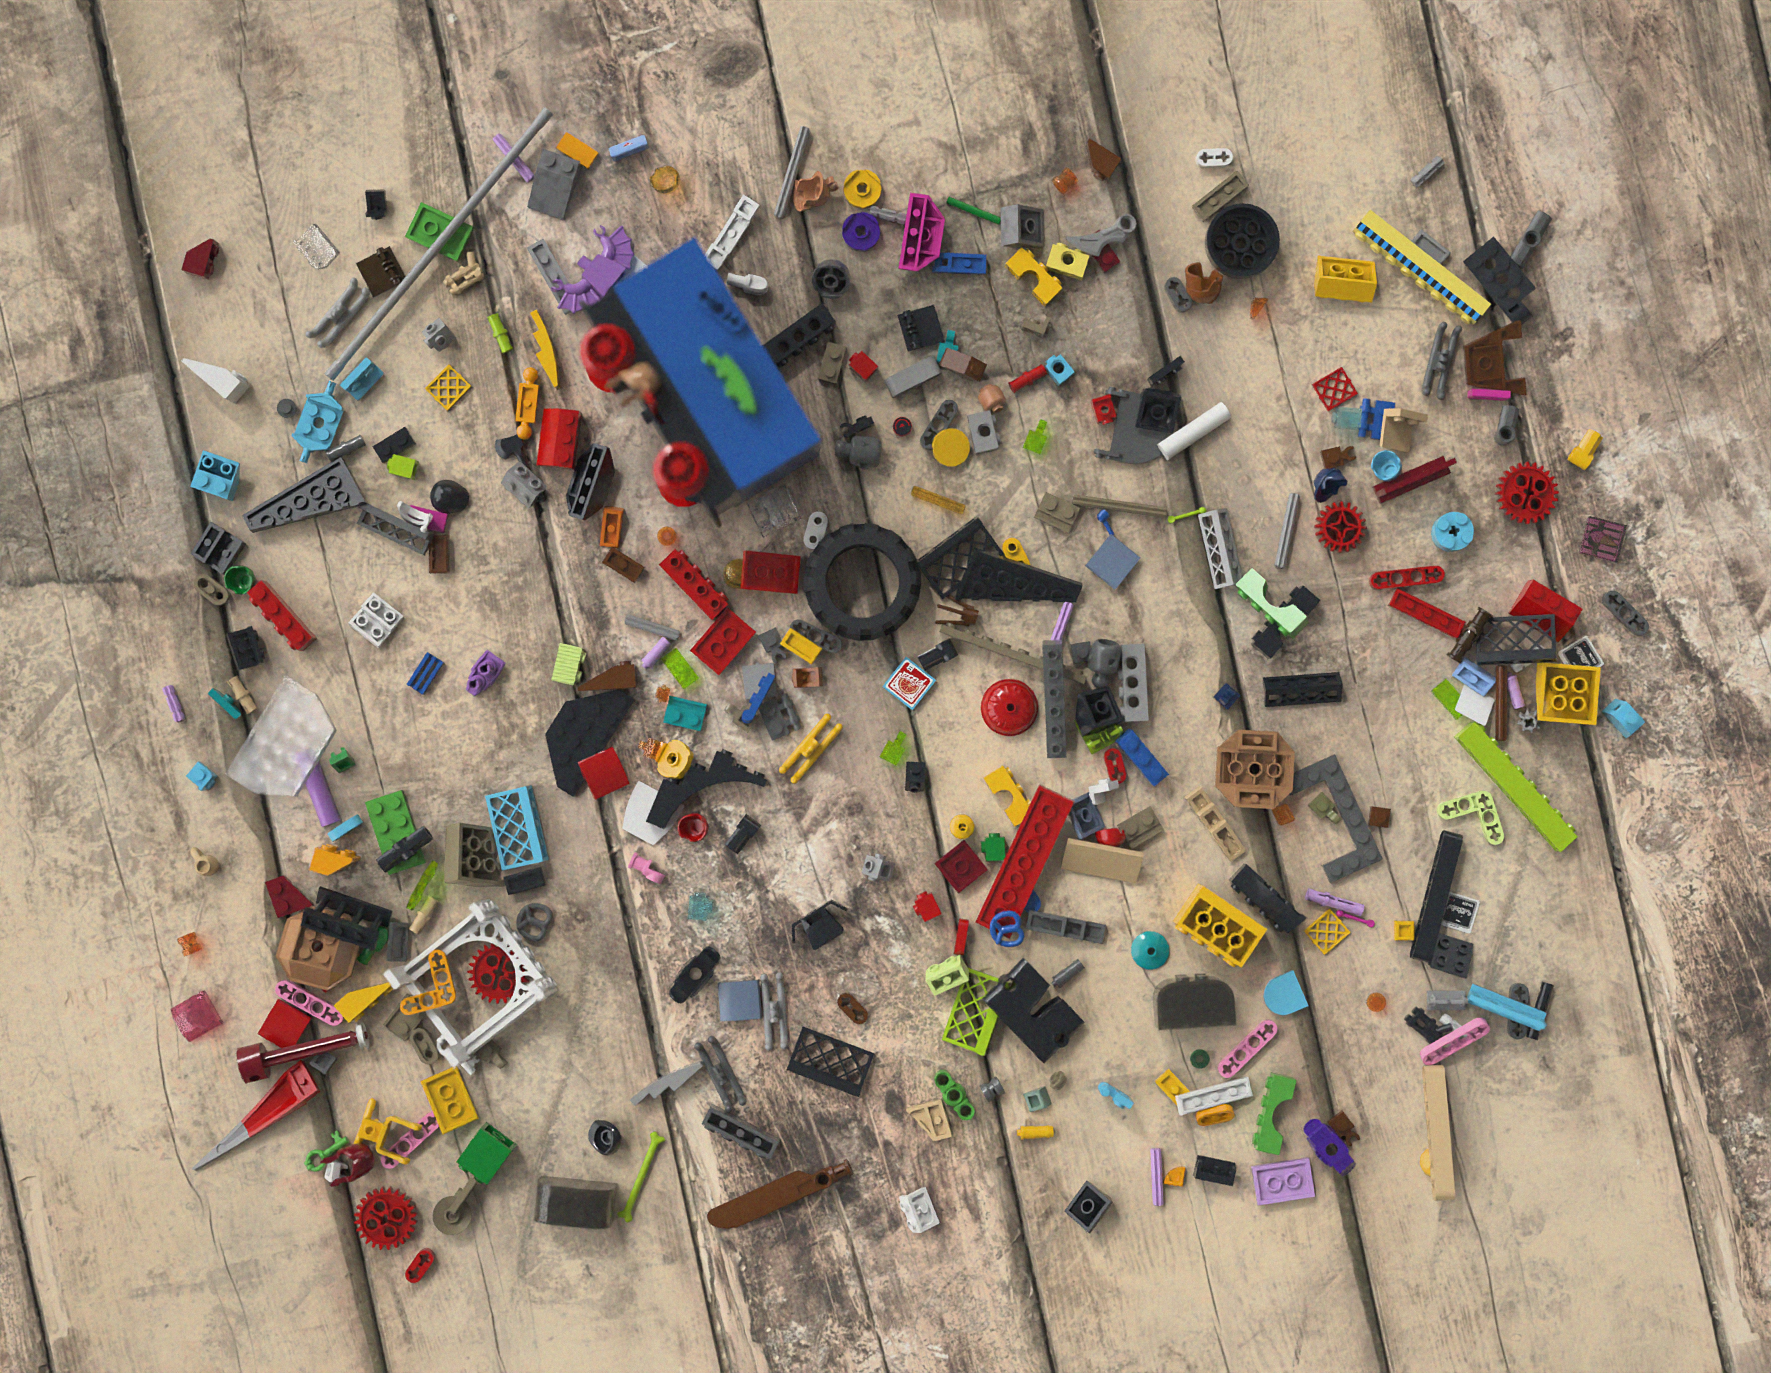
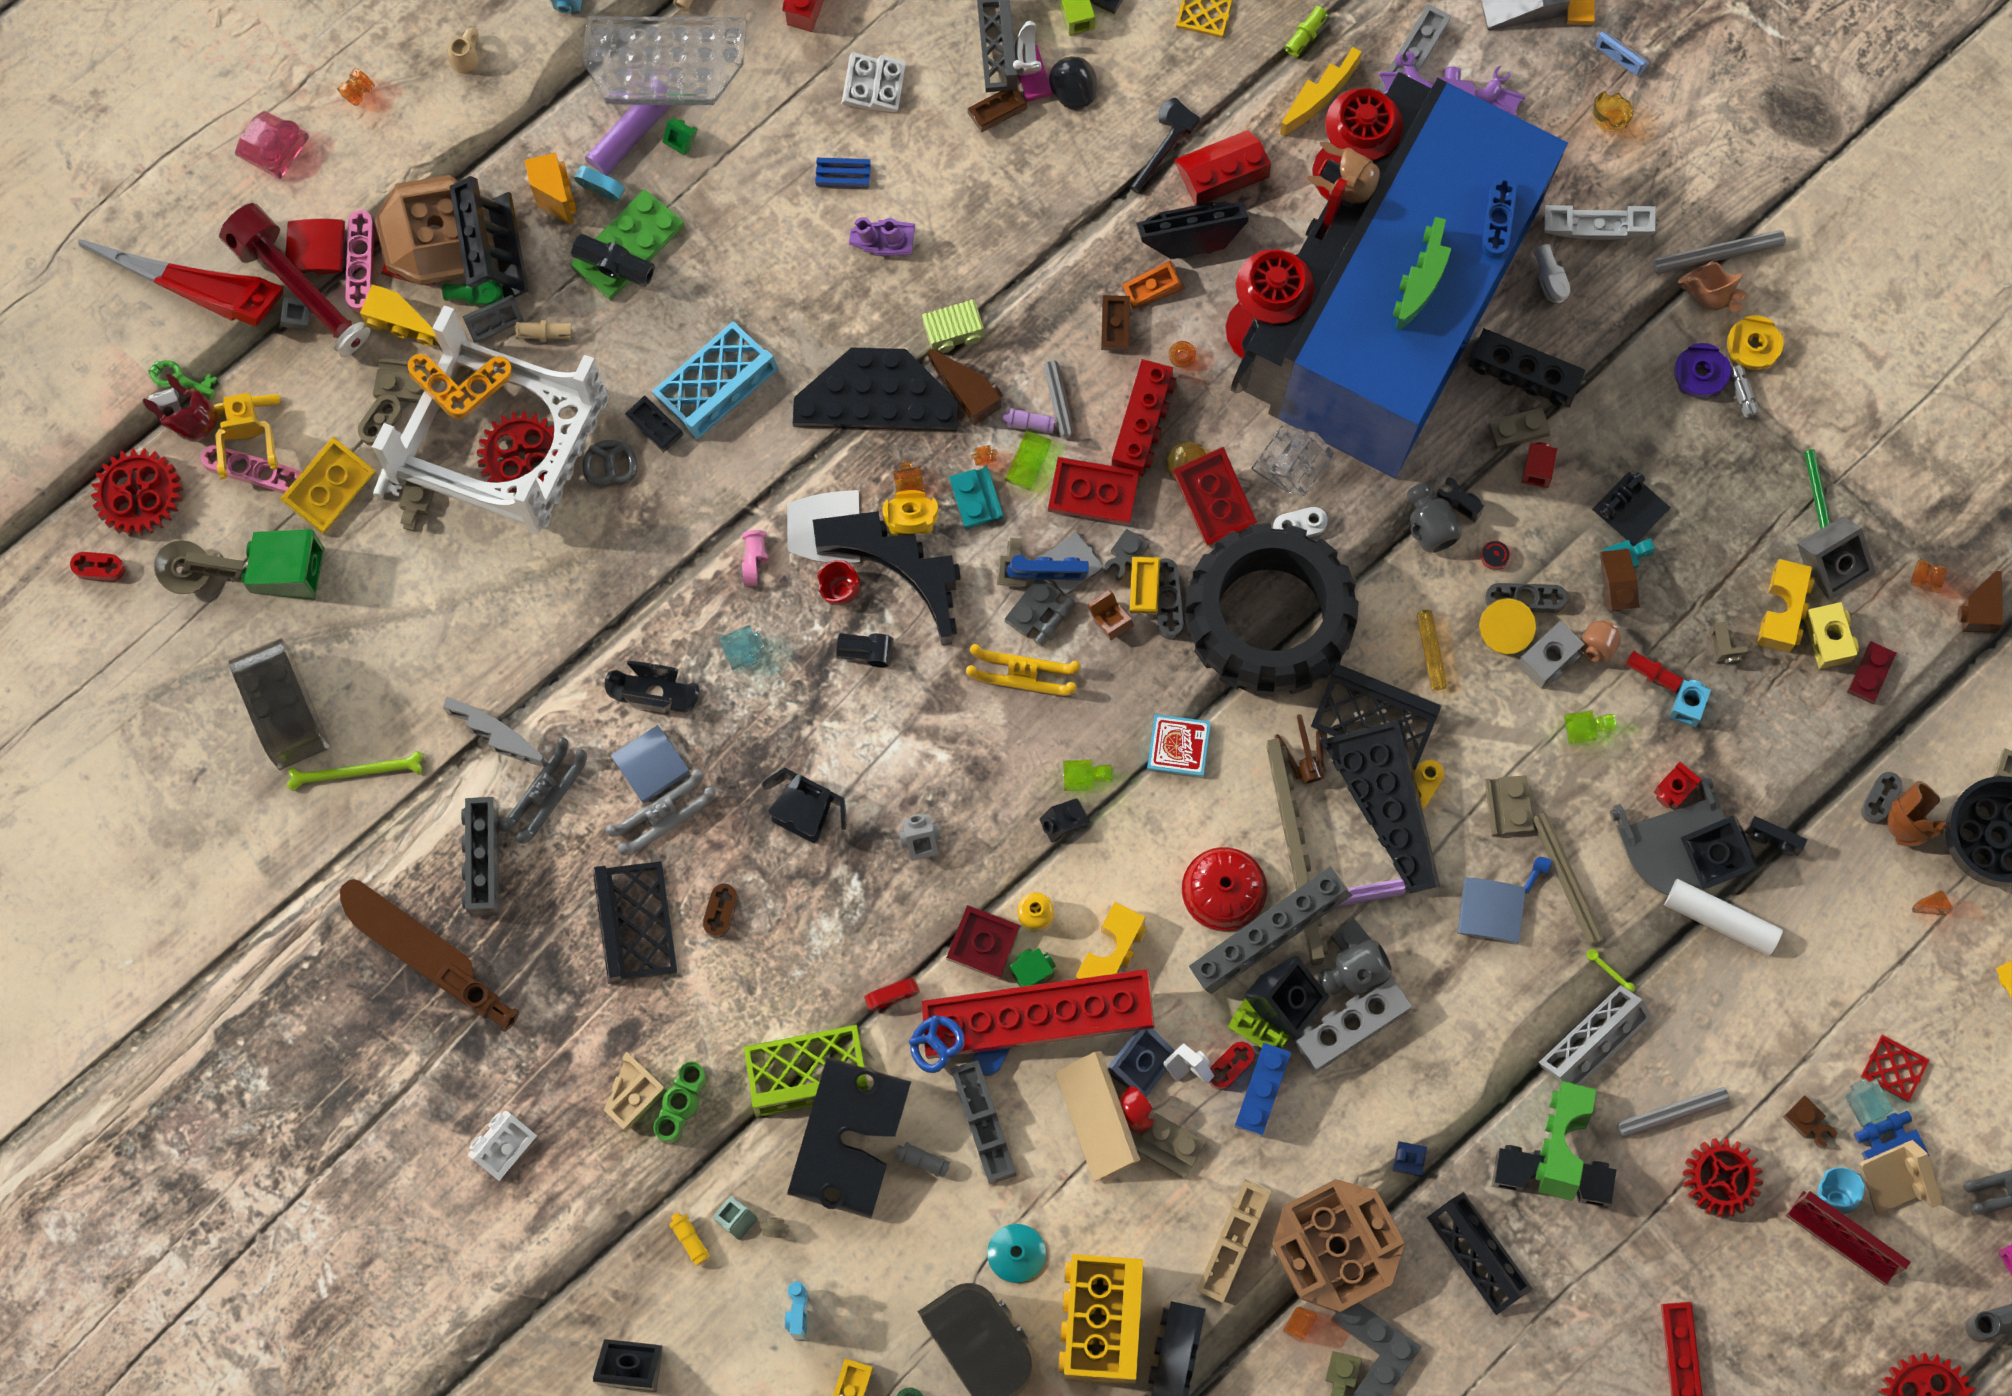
camera: 65 degrees right, 15 degrees down
(286, 897) = (476, 160): dark red wing -> none
(419, 890) = (568, 305): clear neon green tile -> none
(471, 856) = (648, 344): dark tan wedge -> none
(523, 484) = (1141, 154): light grey bracket -> none
(527, 403) = (1242, 107): light orange plate -> none
(603, 773) = (843, 440): red slope -> none
(604, 1137) = (382, 696): black hat -> none
(831, 278) = (1621, 364): flat silver cylinder -> none
(913, 376) = (1565, 531): light grey beam -> none
(921, 233) = (1747, 437): dark pink wedge -> none
(926, 906) = (906, 927): red brick -> none
(941, 653) = (1243, 763): black piece -> none
(947, 974) = (832, 1001): yellowish green brick -> none
(961, 263) = (1741, 509): blue plate -> none
(992, 1089) = (714, 1148): dark grey wheel -> none
(1095, 242) = (1877, 653): light grey piece -> none
(1327, 484) = (1767, 1127): dark blue piece -> none
(1406, 577) = (1717, 1303): red beam -> none
(1455, 521) = (1828, 1333): medium azure brick -> none

